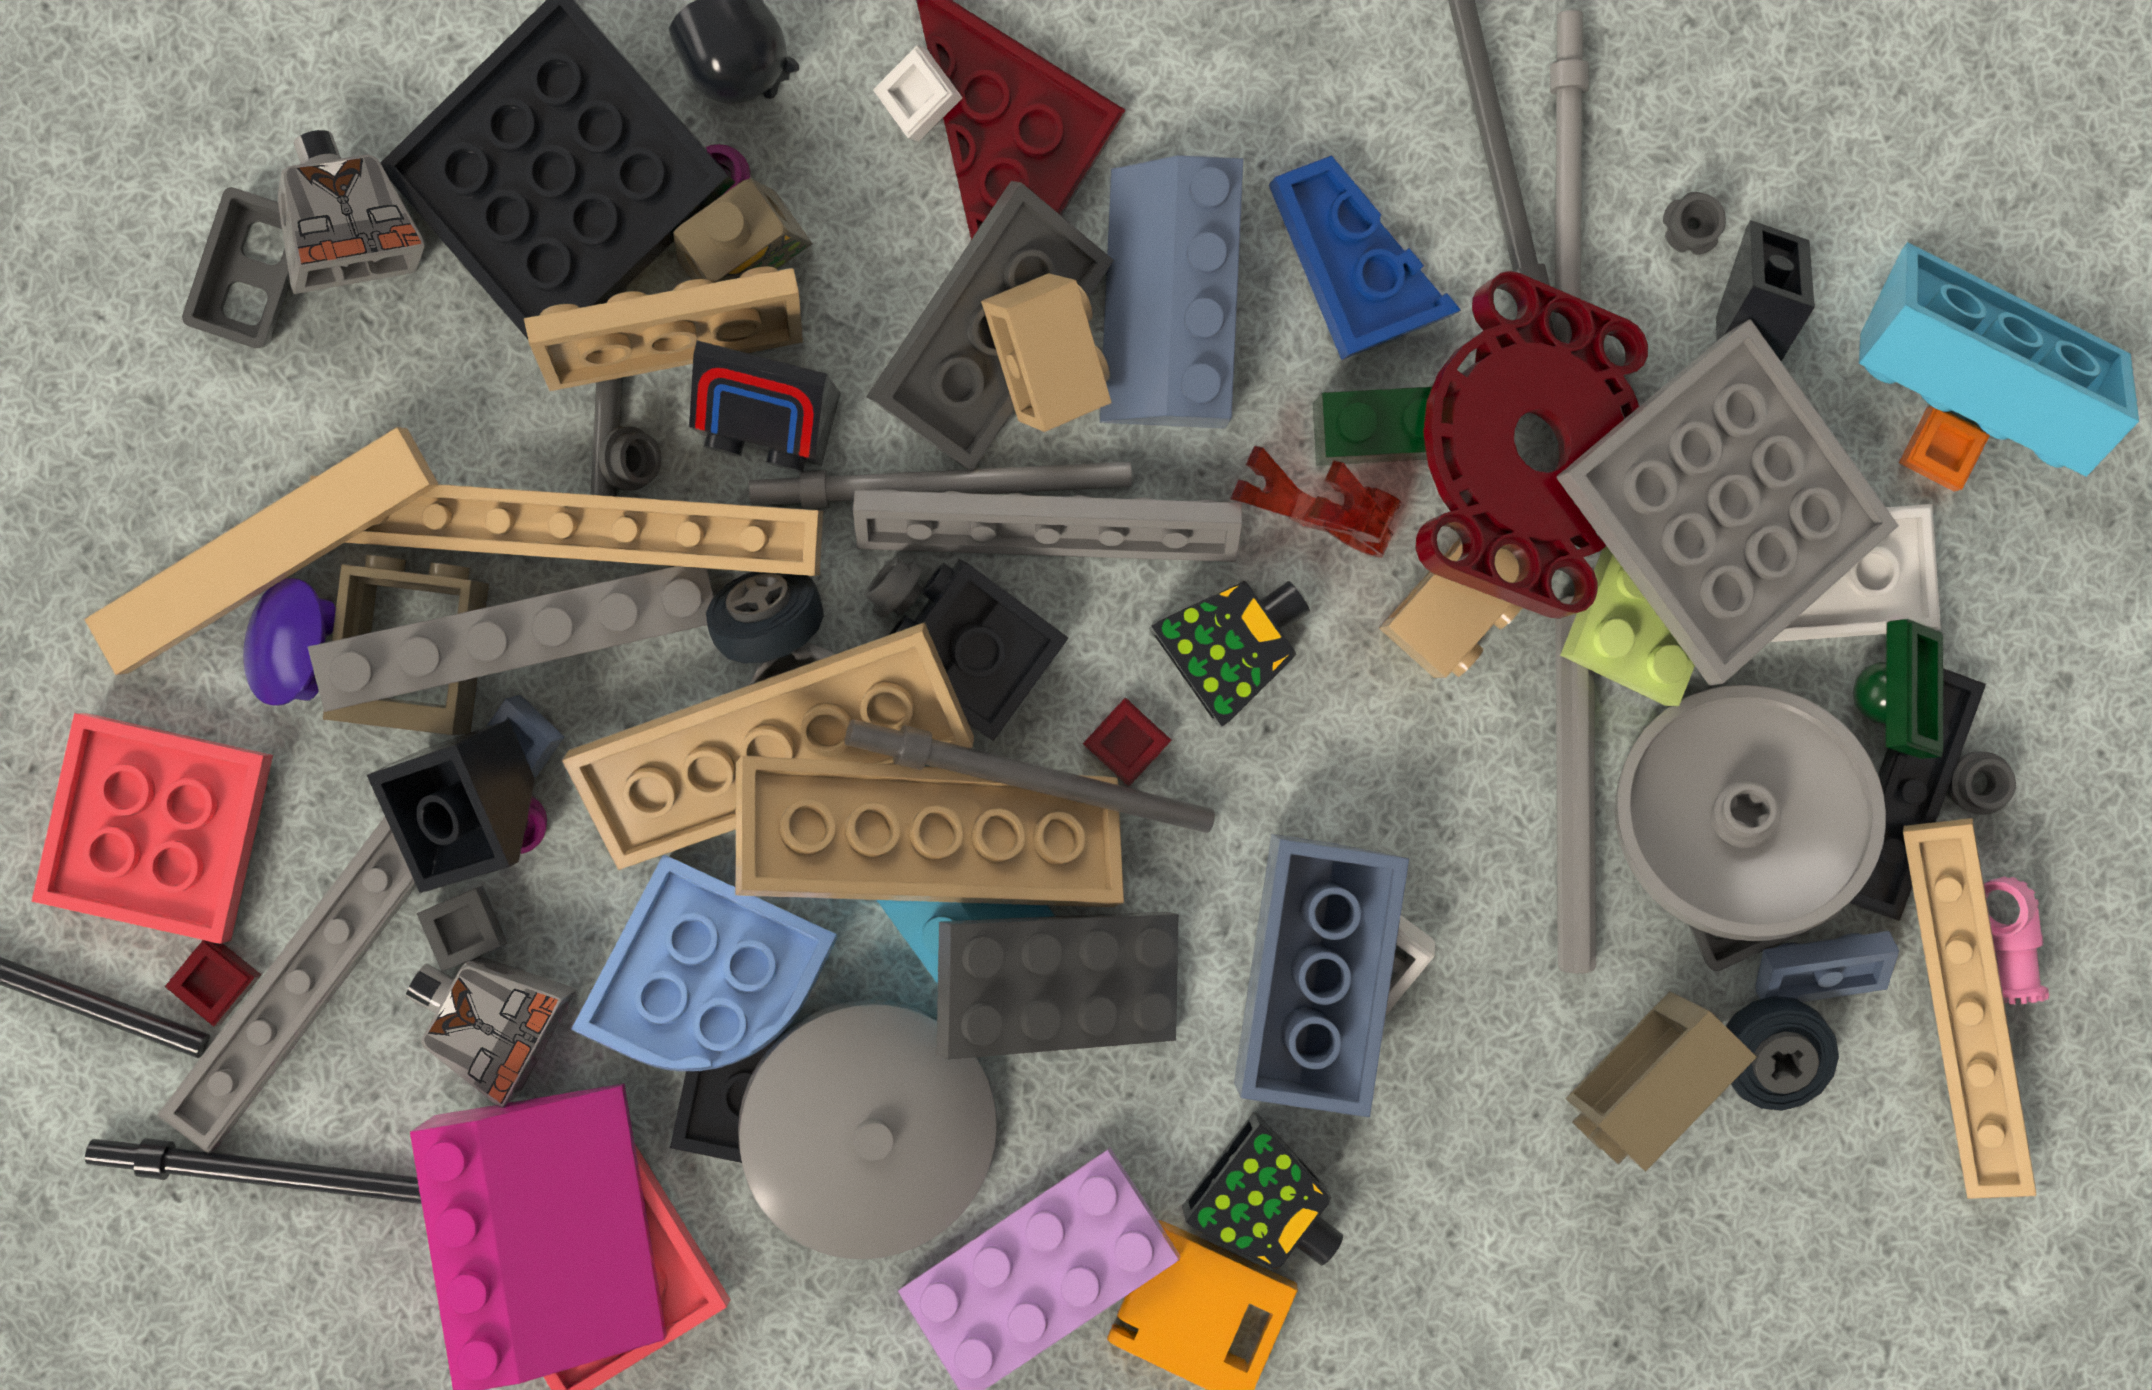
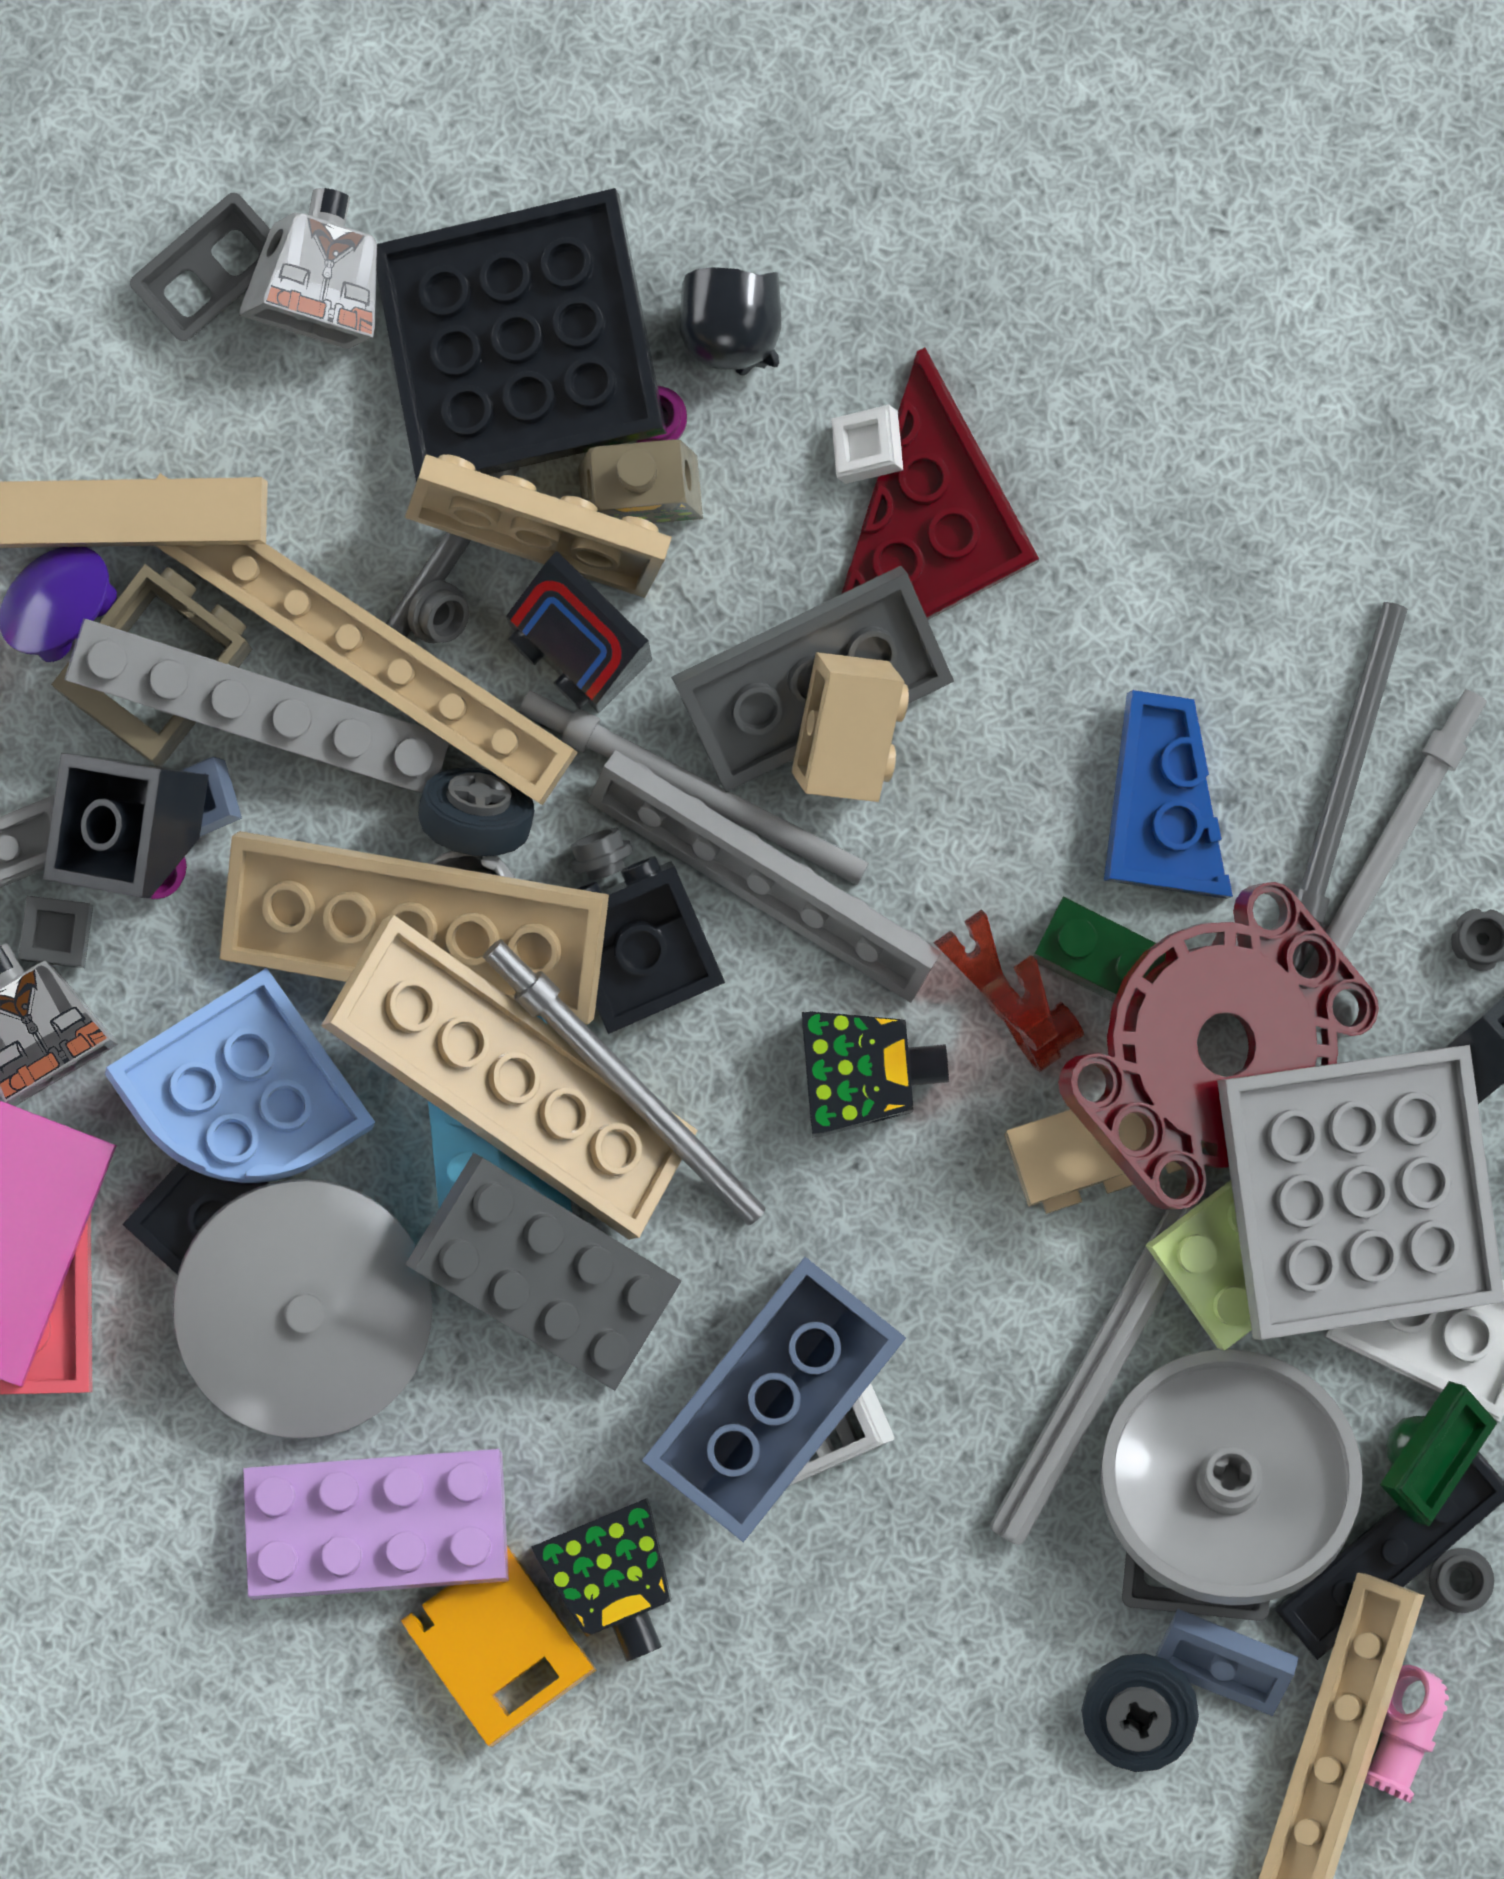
camera: 35 degrees right, 5 degrees down
(1127, 741) = (724, 1104): dark red tile -> none
(1172, 291) = (987, 738): sand blue slope -> none
(1658, 1081) = (1013, 1664): dark tan window -> none

